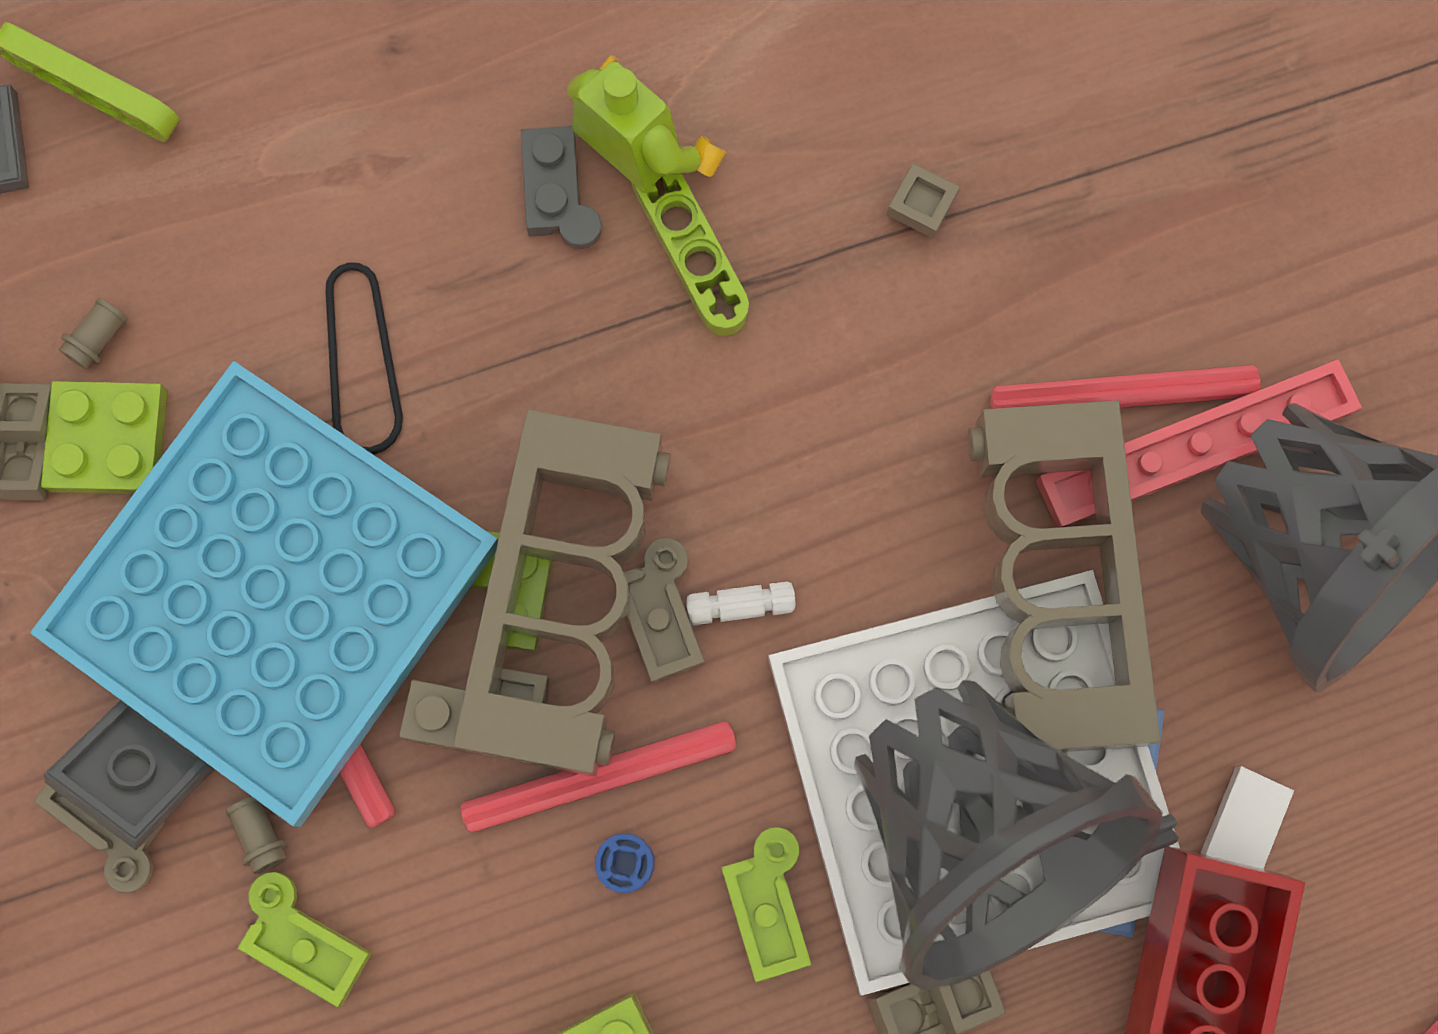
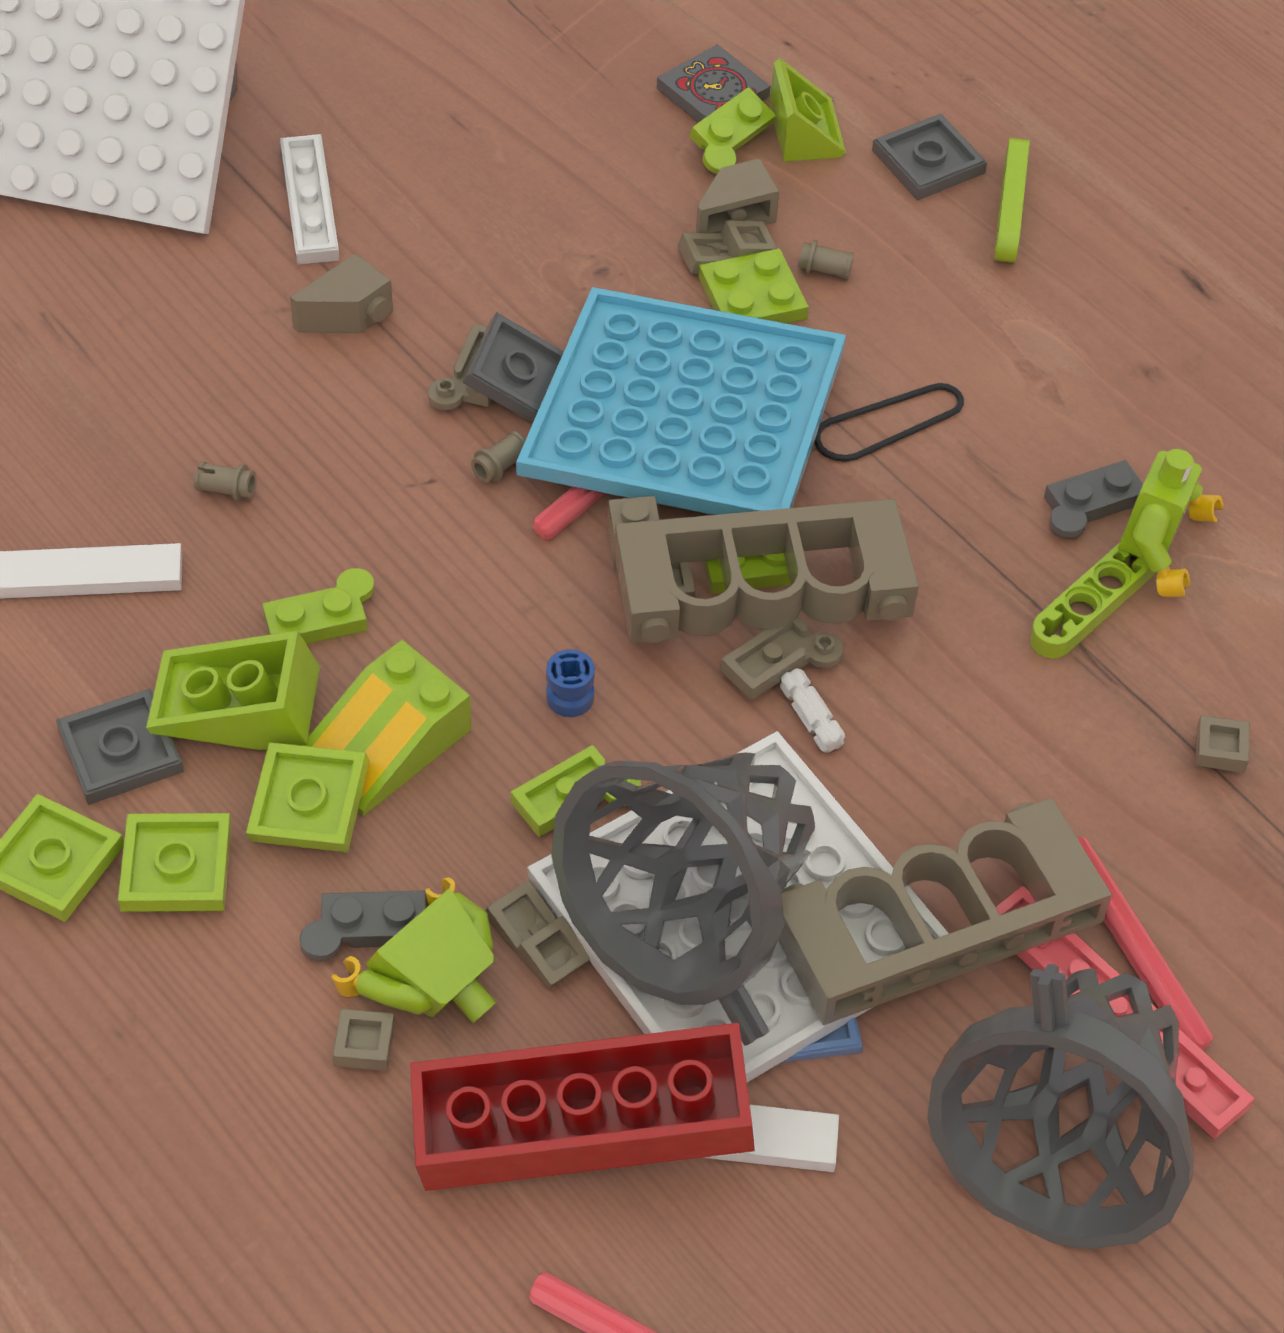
camera: 70 degrees right, 25 degrees down
(300, 944) = (429, 505): lime hinge -> none
(622, 770) = (633, 656): coral axle -> none

